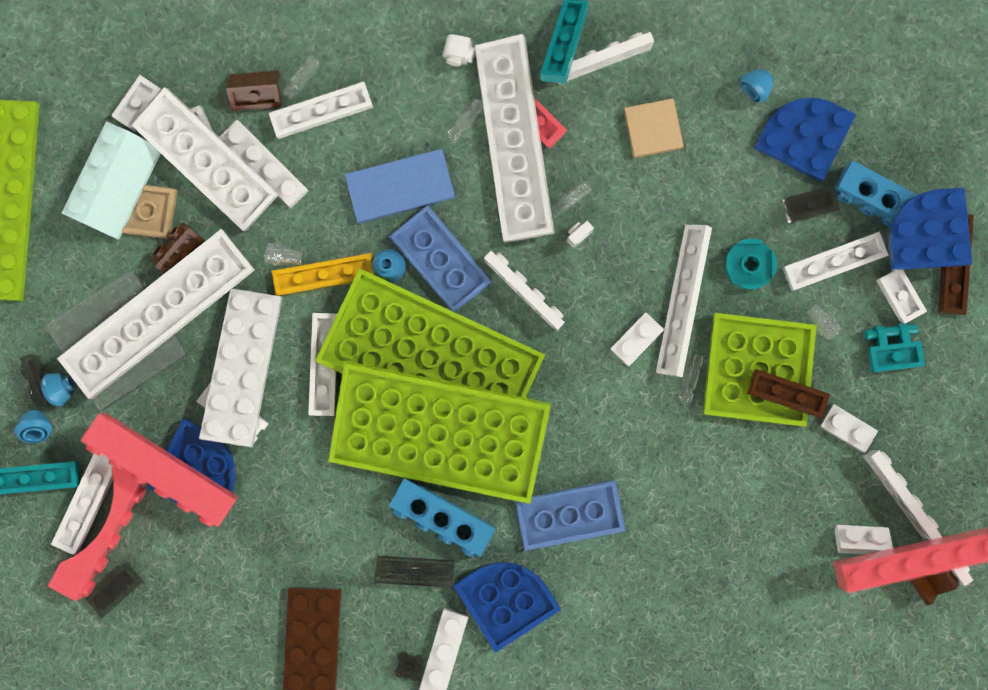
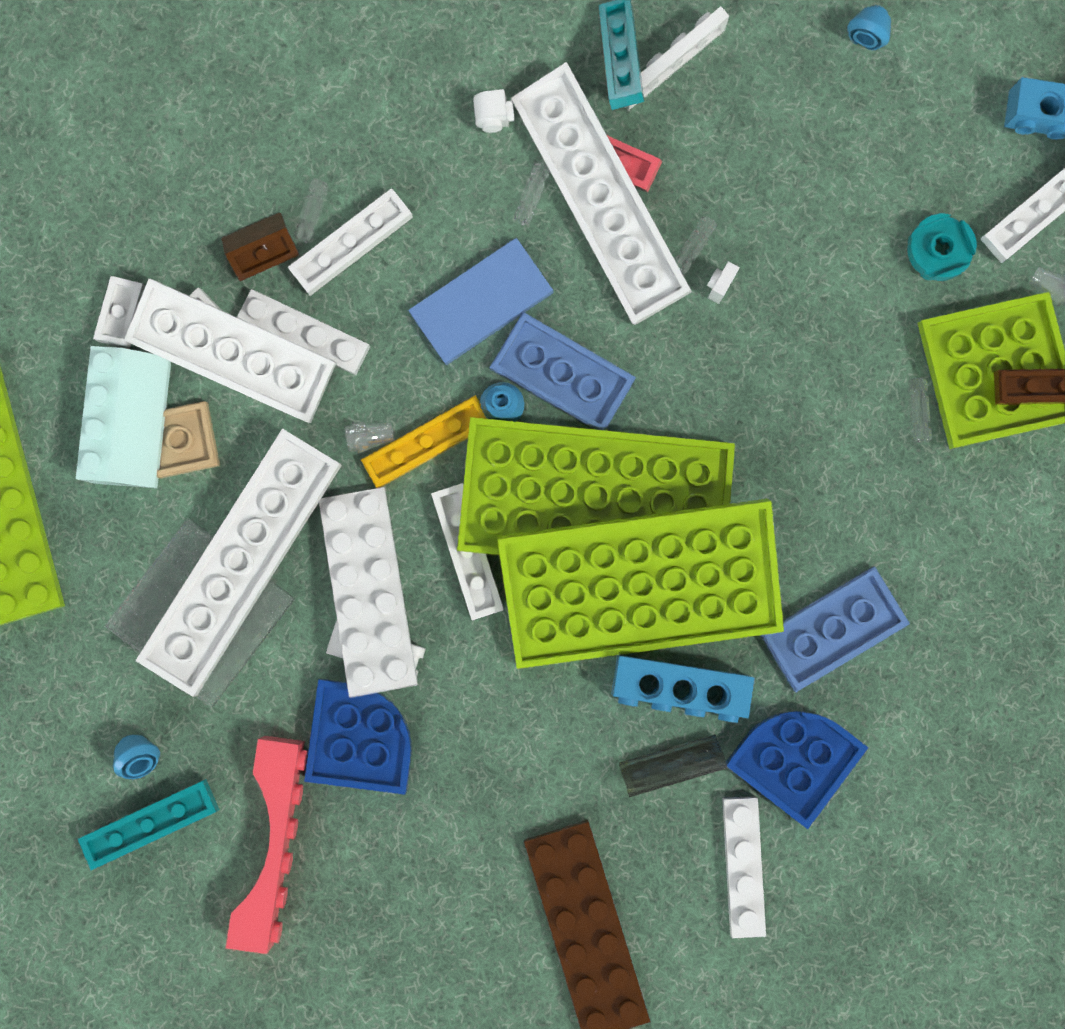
camera: 20 degrees left, 0 degrees up
(33, 371) = (126, 705): clear smoke plate -> none
(57, 388) = (148, 698): dark azure cone -> none
(84, 505) = (234, 827): white plate -> none
(114, 590) = (308, 922): clear smoke plate -> none
(159, 468) = (314, 752): coral brick -> none
(180, 244) = (235, 470): reddish brown bracket -> none
(408, 673) = (713, 891): clear smoke plate -> none
(517, 281) = (693, 379): white plate -> none
(637, 339) = (837, 386): white plate -> none
(653, 128) = (763, 124): tan tile -> none
(683, 300) = (878, 318): white plate -> none
(806, 135) = (950, 69): blue plate -> none
(810, 204) = (987, 150): clear smoke plate -> none

